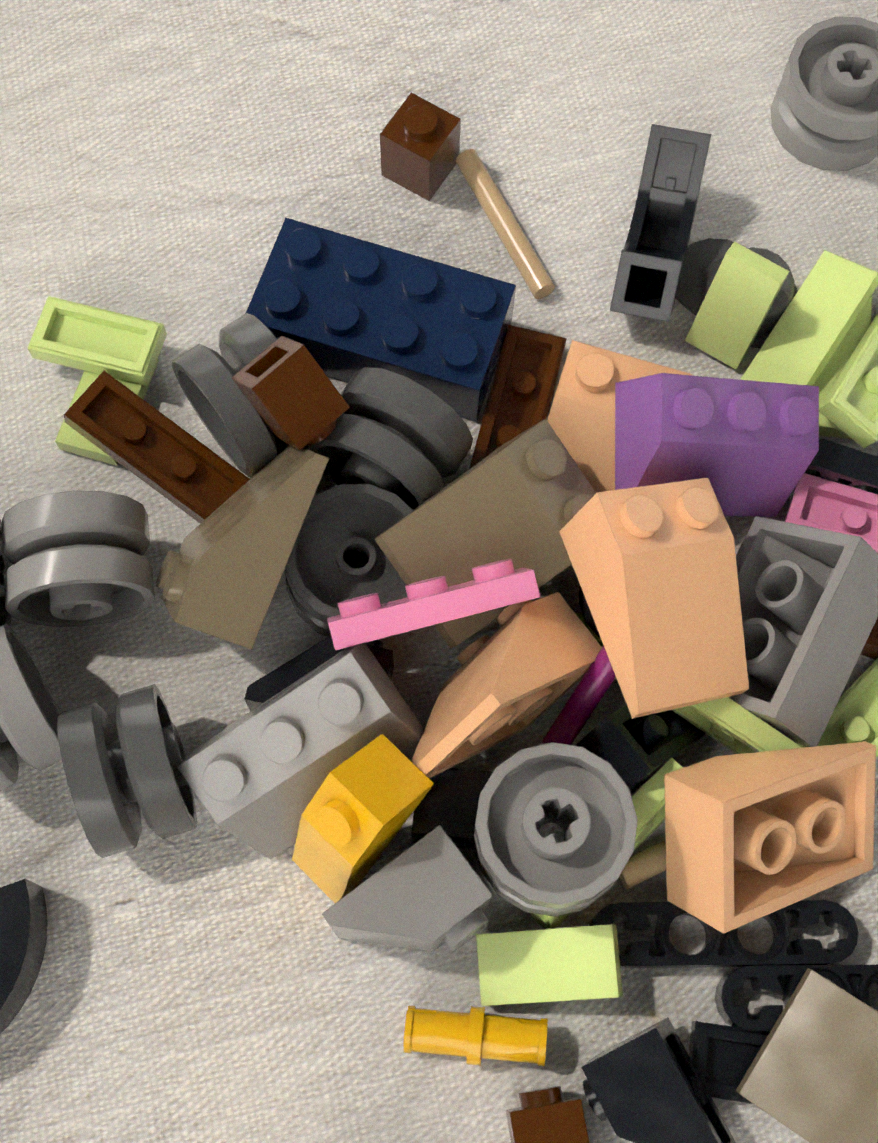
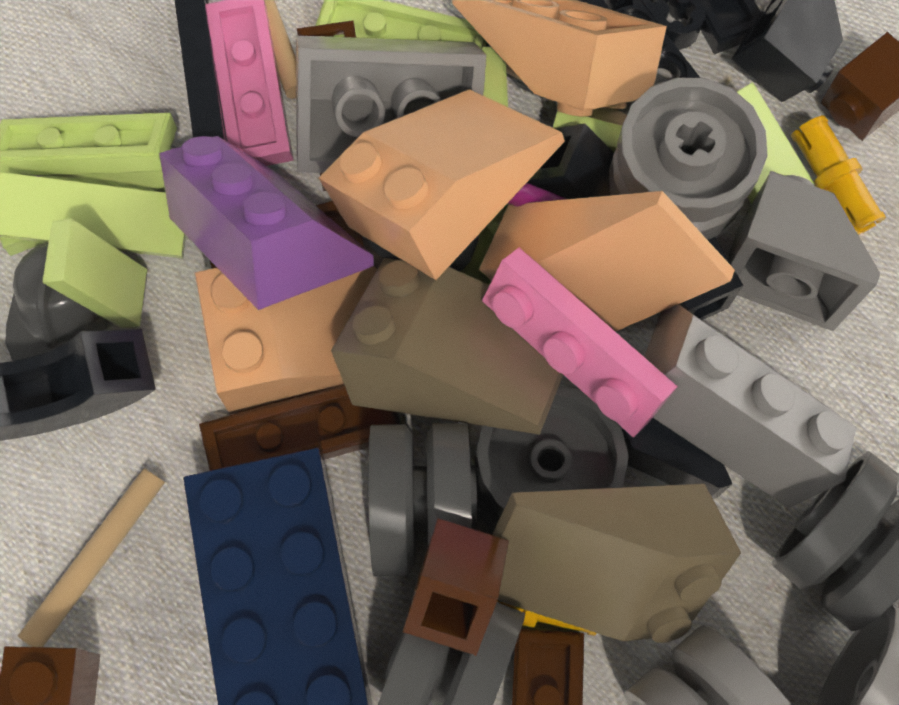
camera: 120 degrees left, 0 degrees up
(357, 816) = (780, 302): yellow slope -> none

